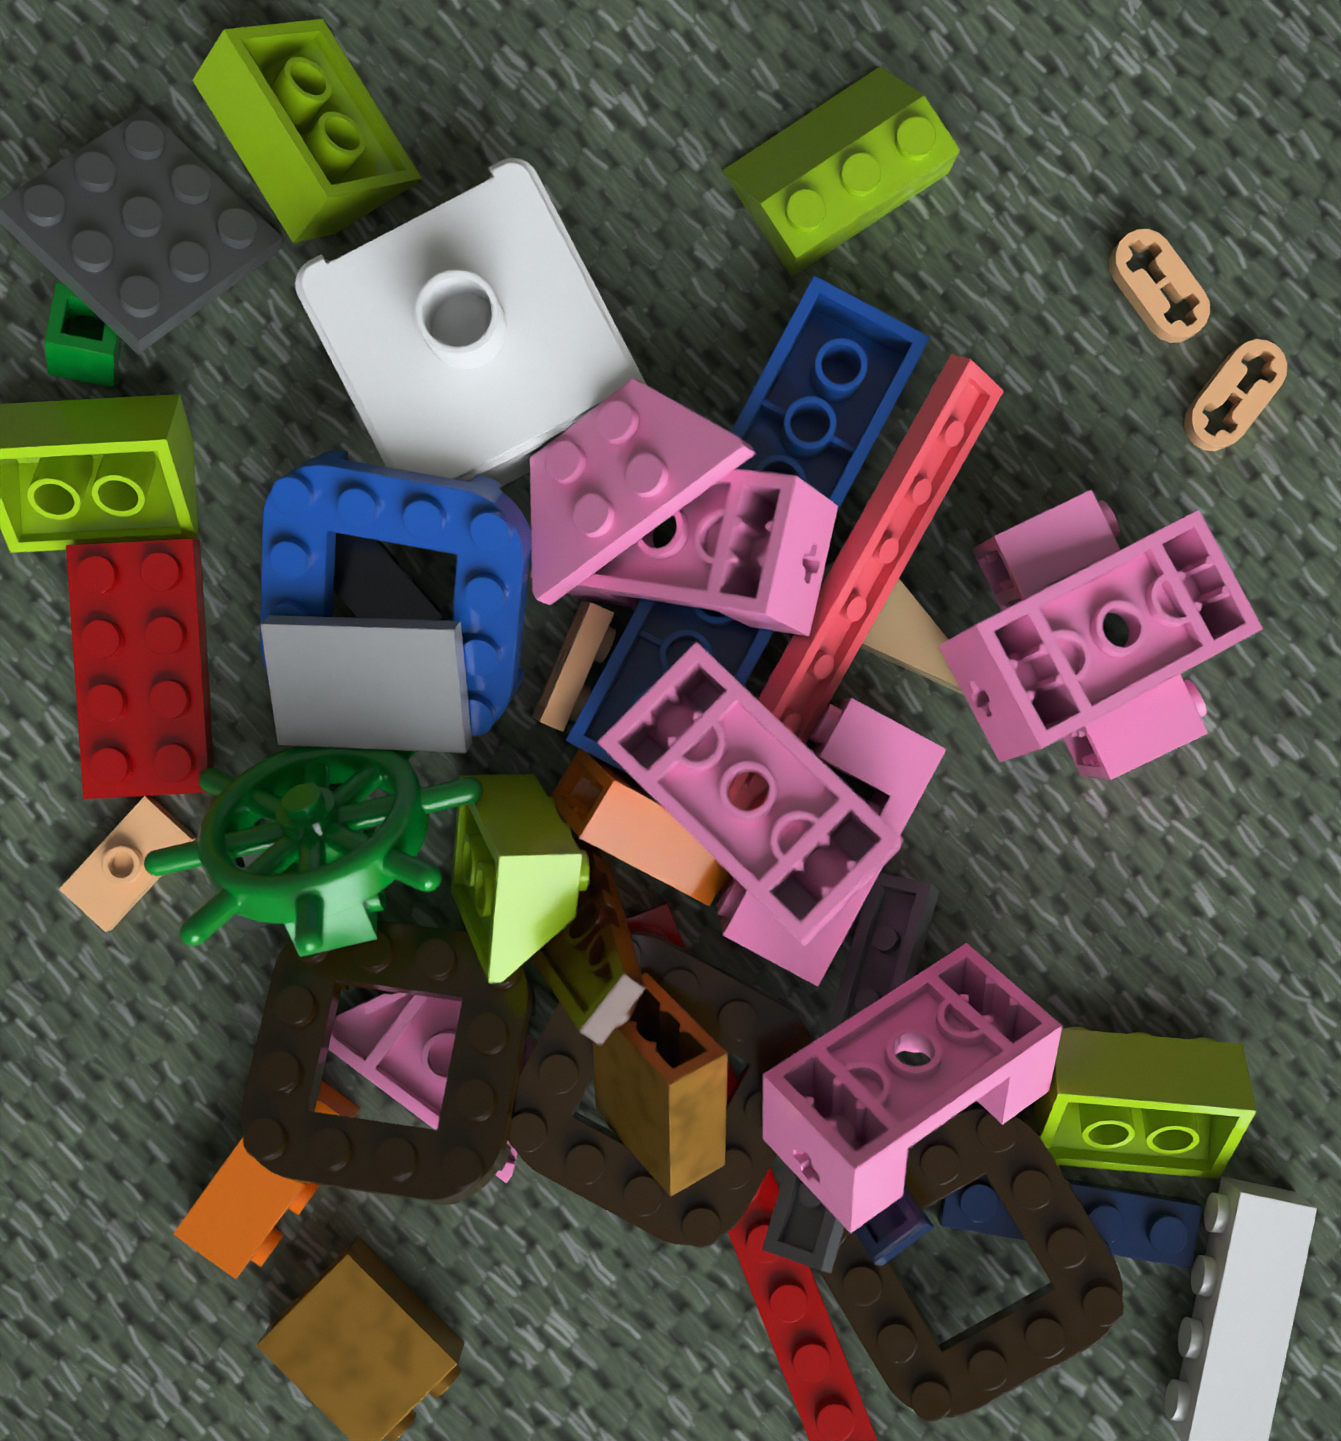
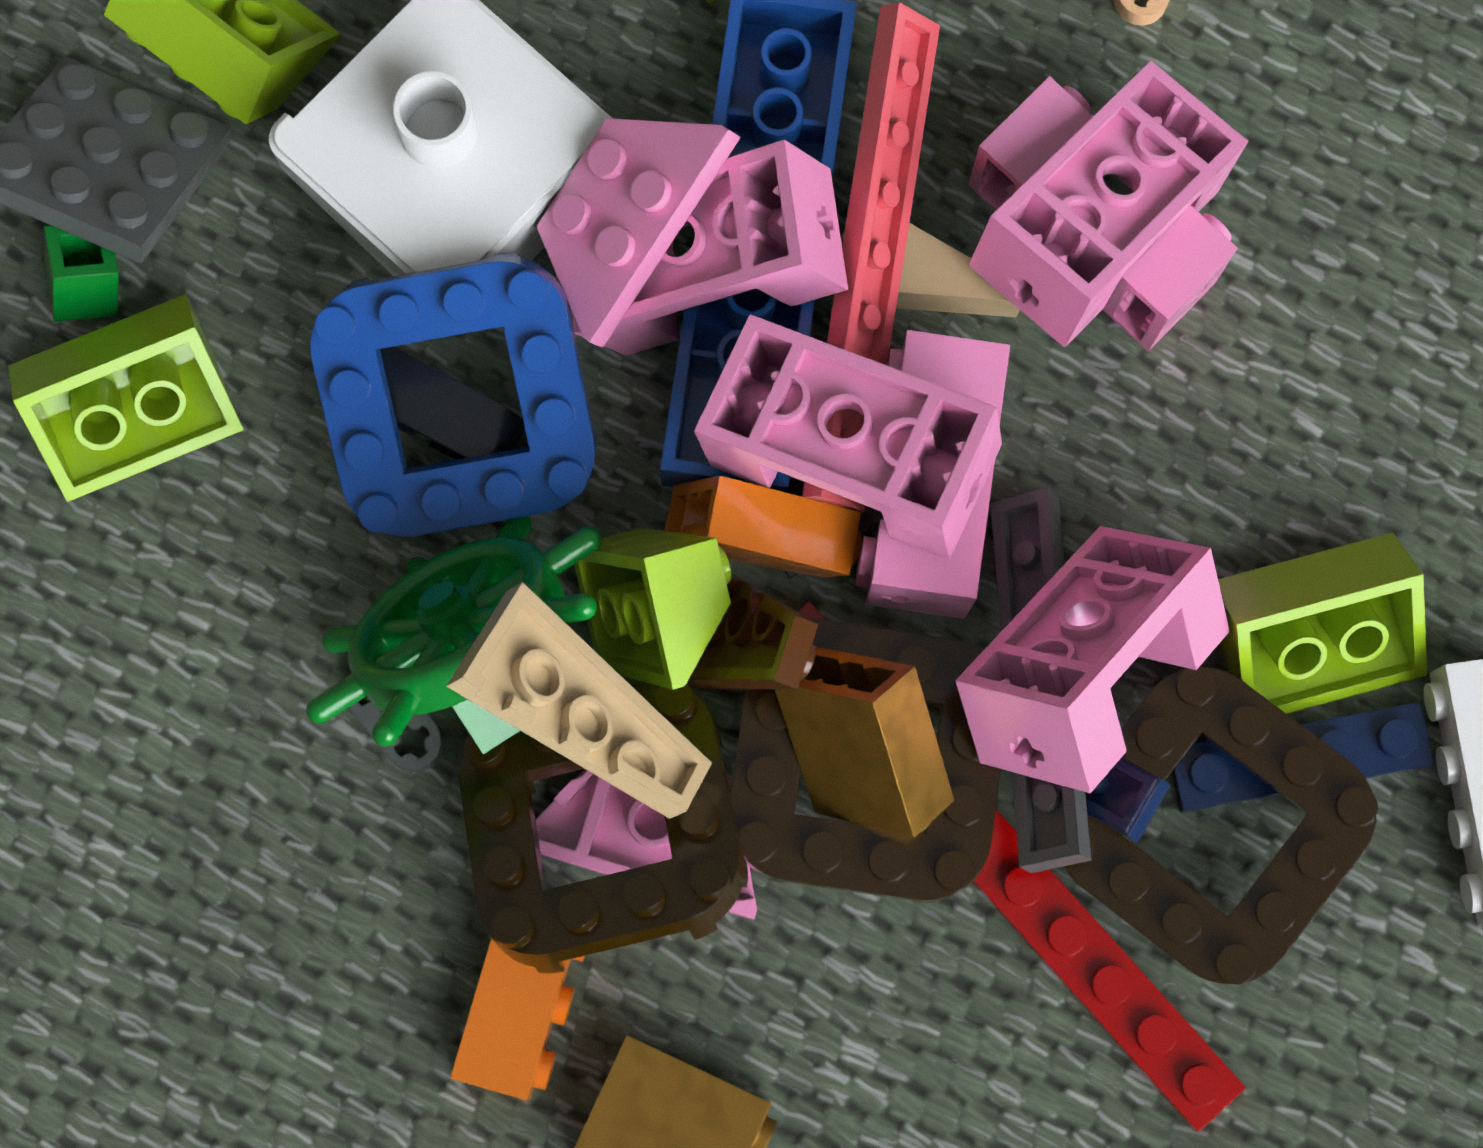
camera: 20 degrees left, 10 degrees down
(115, 872) = (276, 754): light nougat plate -> none
(140, 667) = (230, 562): red plate -> none
(367, 683) = (458, 480): light grey tile -> none
(375, 966) = (570, 699): none -> tan wing
(586, 642) = (643, 388): light nougat plate -> none

